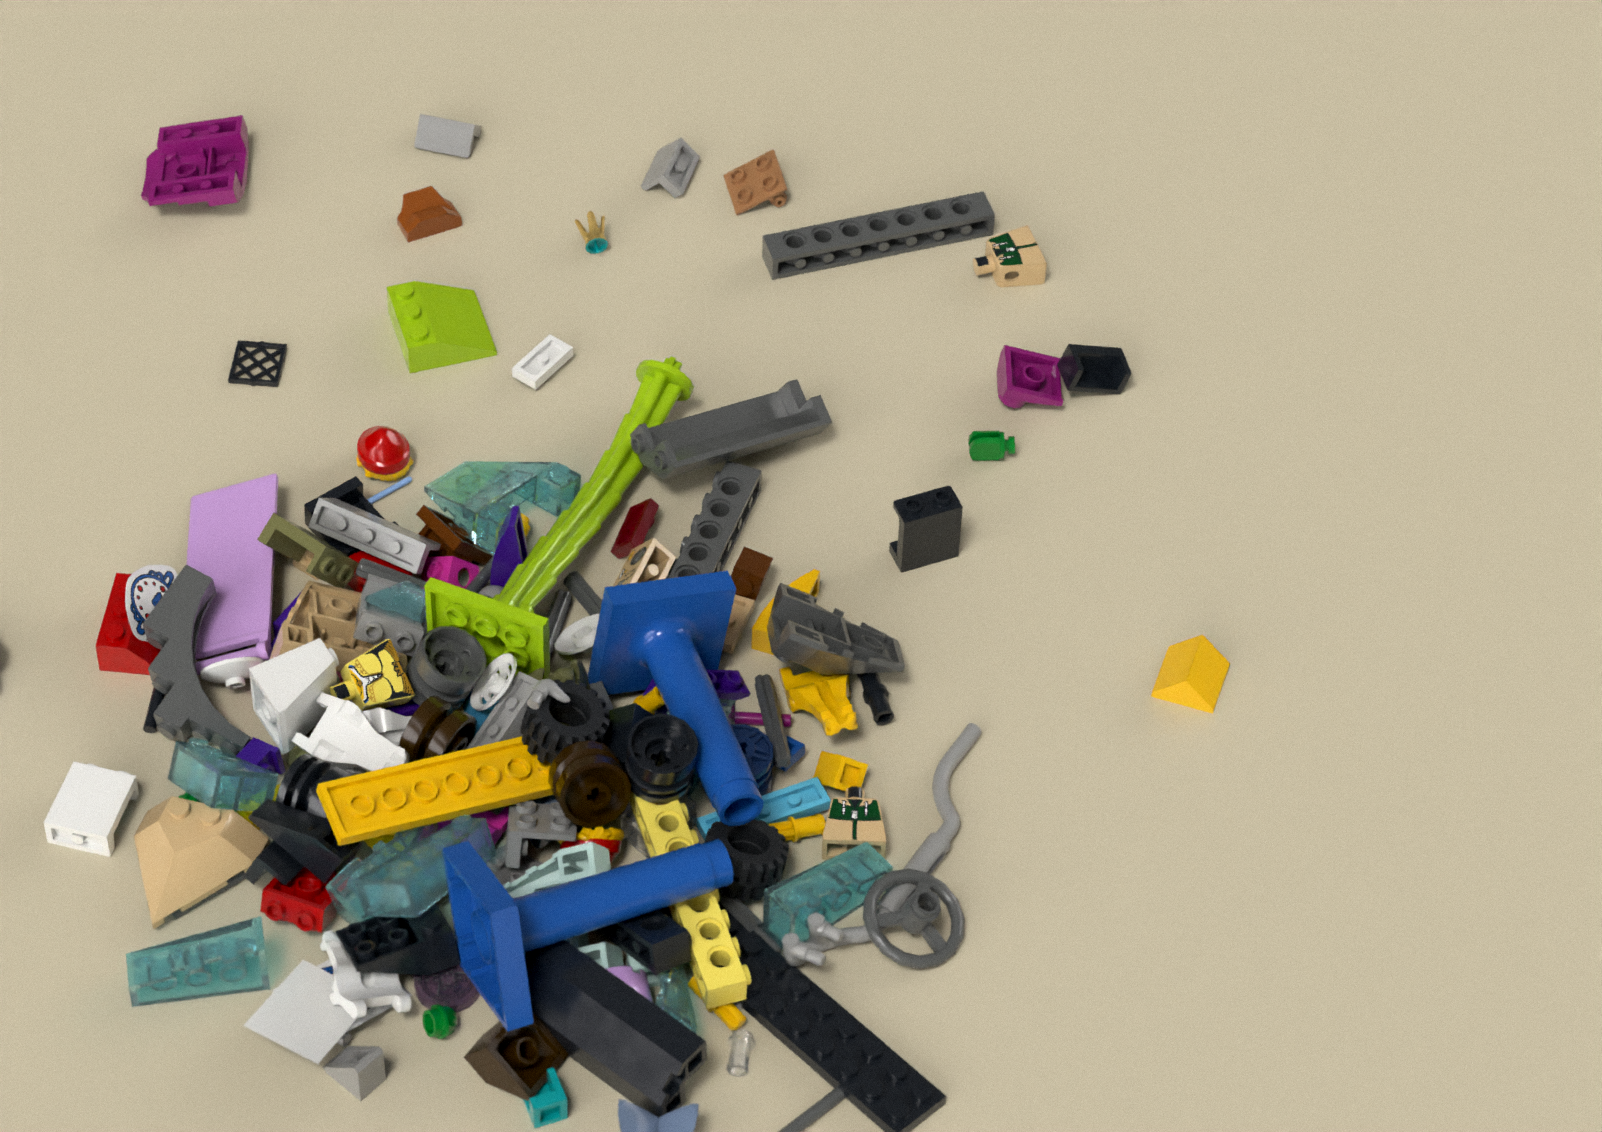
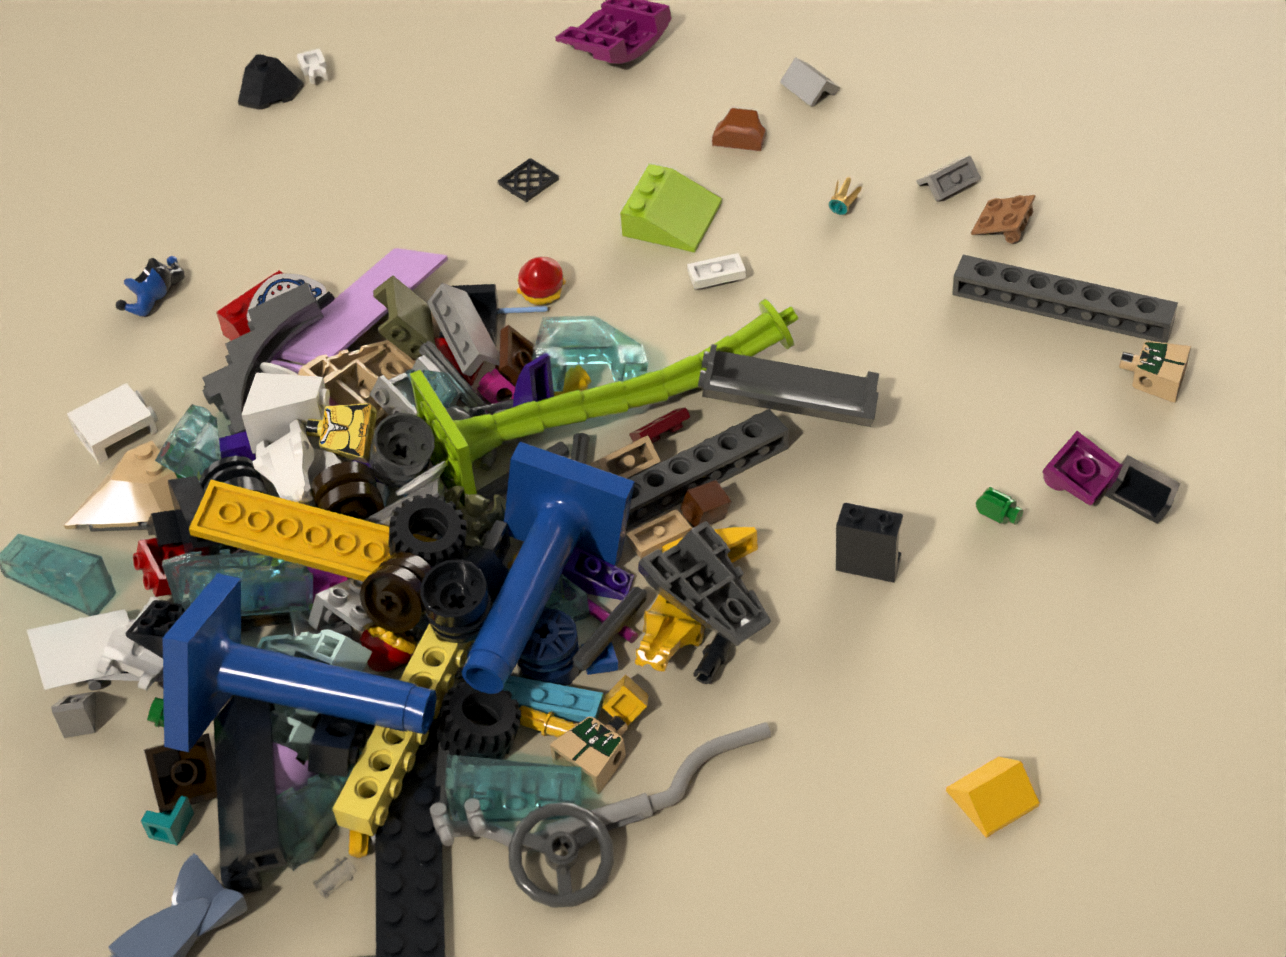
camera: 45 degrees right, 0 degrees up
(542, 690) = (416, 497): light grey animal -> none

